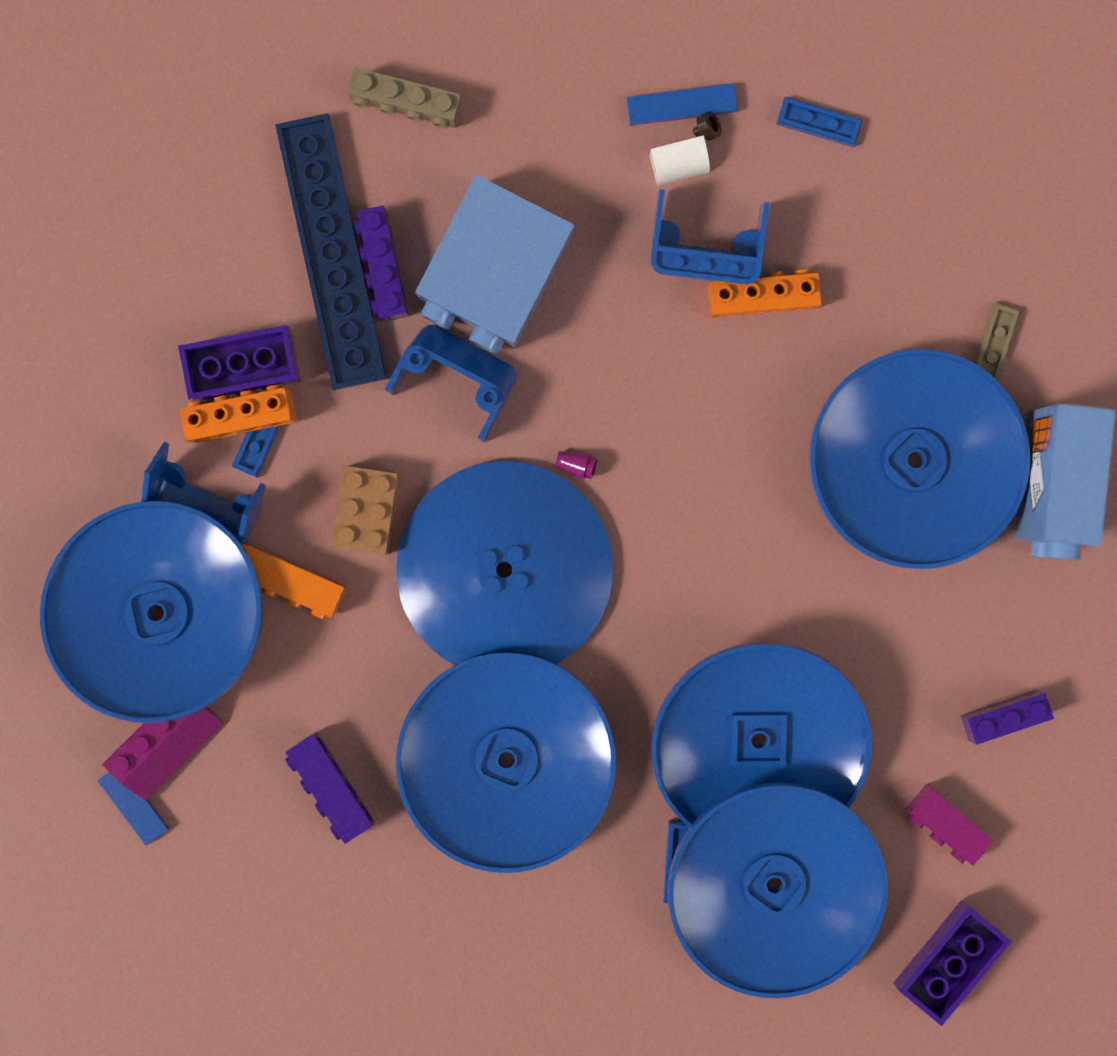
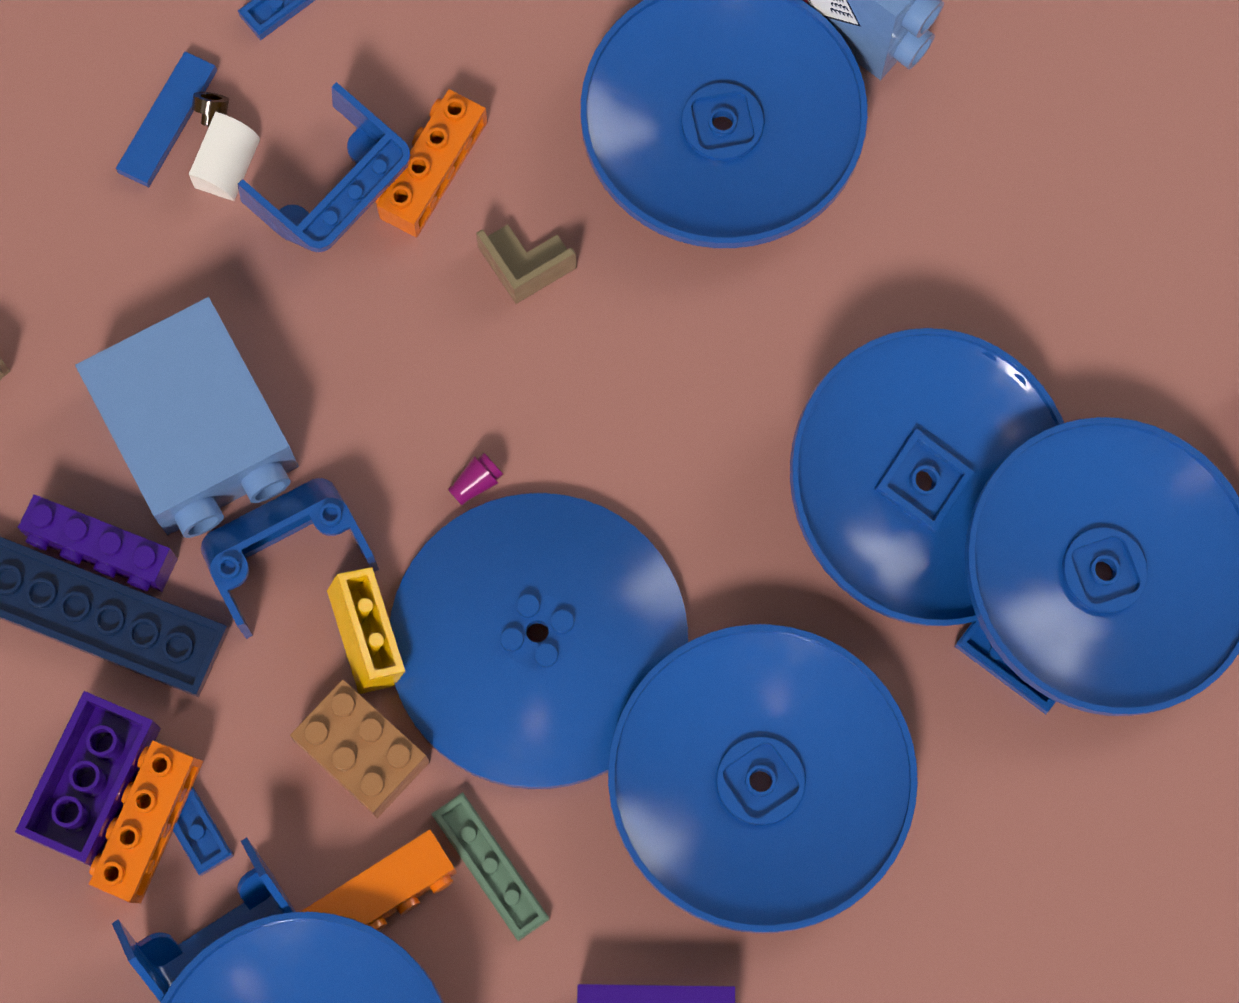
camera: 60 degrees left, 15 degrees down
(351, 633) = (490, 867): none -> sand green tile
(437, 464) = (365, 630): none -> yellow brick
(731, 399) = (524, 271): none -> dark tan panel
(948, 826) = (1157, 339): magenta brick -> none
(1007, 717) = (1072, 203): dark purple brick -> none

